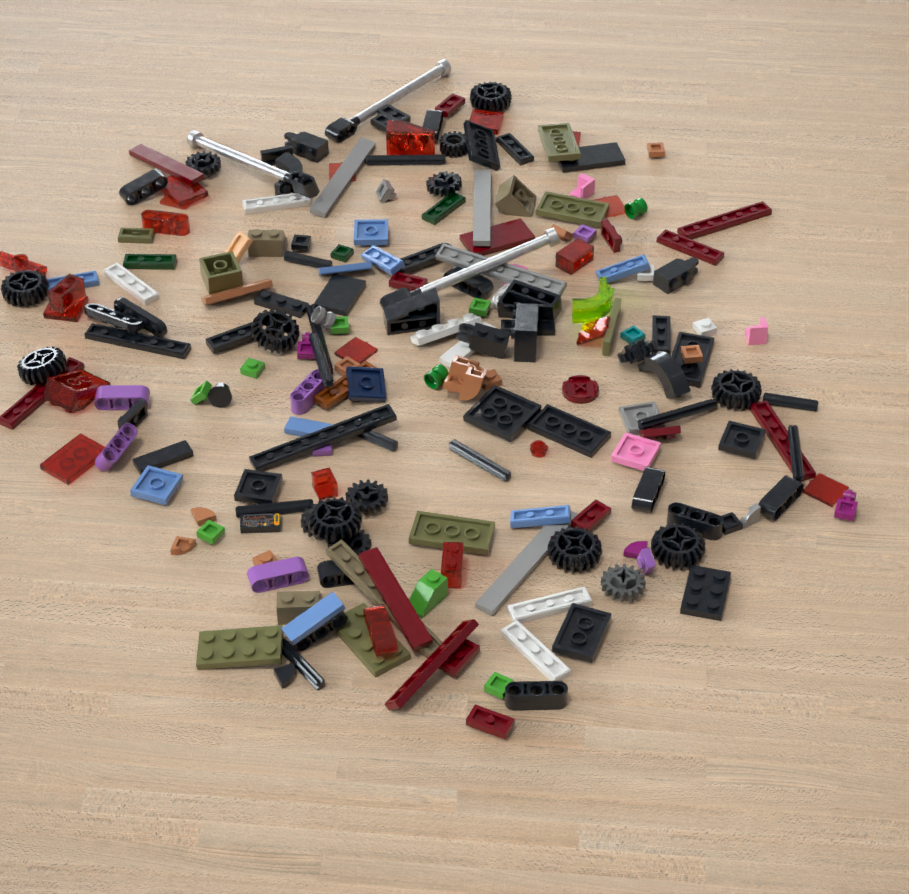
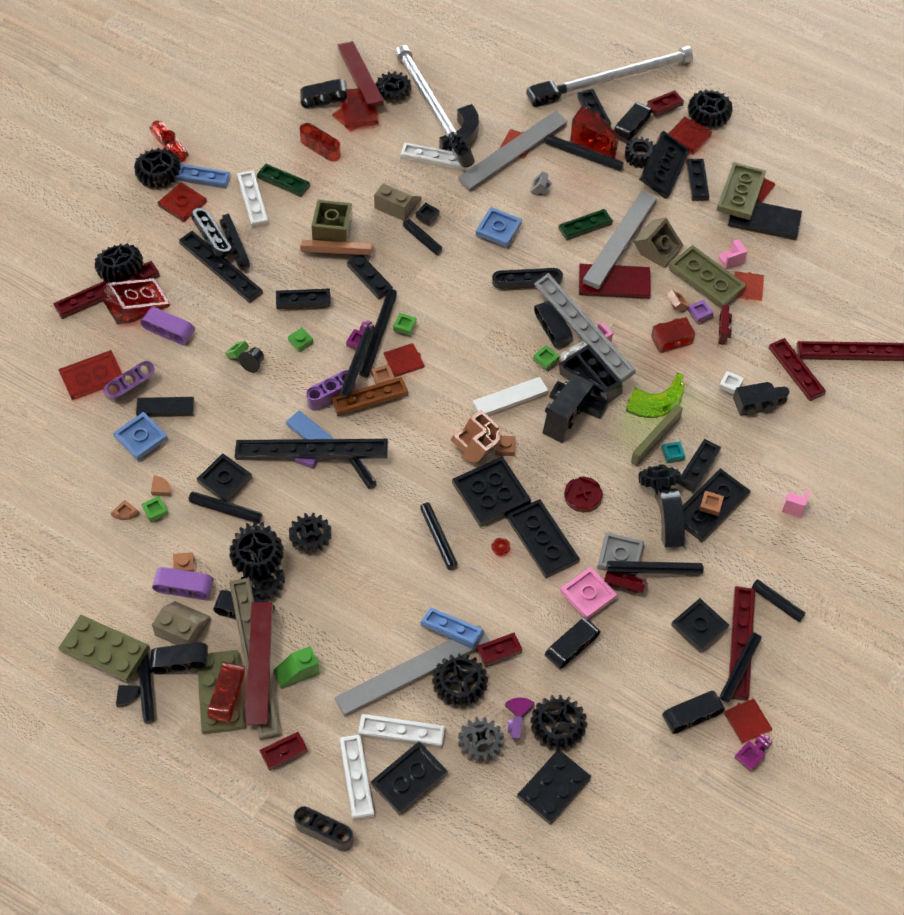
camera: 25 degrees right, 15 degrees up
(66, 293) = (182, 192): clear red brick -> none
(135, 414) = (163, 352): black plate -> none
(136, 235) = (287, 146): olive tile -> none
(239, 245) = (363, 199): light nougat tile -> none
(260, 523) = (204, 517): black tile -> none
(270, 155) = (460, 100): black tile -> none
(273, 336) = (340, 294): black gear -> none
(307, 145) = (500, 101): black hinge -> none
(313, 618) = (173, 653): medium blue tile -> none
(322, 317) = (390, 312): light grey wheel -> none
(324, 484) = (283, 501): clear red panel -> none
(340, 294) = (427, 288): black tile -> none
(342, 253) = (459, 240): dark green tile -> none
(344, 268) = (448, 260): medium blue tile -> none
(366, 384) = (385, 404): dark blue tile -> none
(383, 260) = (488, 265): medium blue tile -> none
(394, 113) = (604, 94): black plate -> none
(402, 280) = (497, 300): dark red plate -> none
(413, 313) = (476, 342): black wedge -> none
(431, 664) = (251, 749): dark red tile -> none
(435, 377) = (455, 422): green wheel -> none
(435, 528) = (362, 608): olive plate -> none
(439, 331) = (499, 371): white plate -> none
(444, 183) = (600, 197): black gear -> none
(453, 563) = (337, 646): clear red brick -> none
(484, 339) = (522, 400): black hinge -> none
(490, 721) = (267, 836): dark red plate -> none
(496, 685) = (298, 798): bright green plate -> none
(550, 238) = (479, 320): flat silver piece -> none
(593, 330) = (635, 432): clear red piece -> none
(624, 268) = (710, 370): medium blue tile -> none
(635, 208) = (770, 300): green wheel -> none
(656, 149) = (835, 236): nougat plate -> none
(704, 327) = (749, 473): white plate -> none
(706, 522) = (595, 710): black beam -> none
(731, 523) = (626, 716): black tile -> none
(736, 389) = (744, 563): black gear -> none
(752, 516) = (652, 721): light grey tile -> none

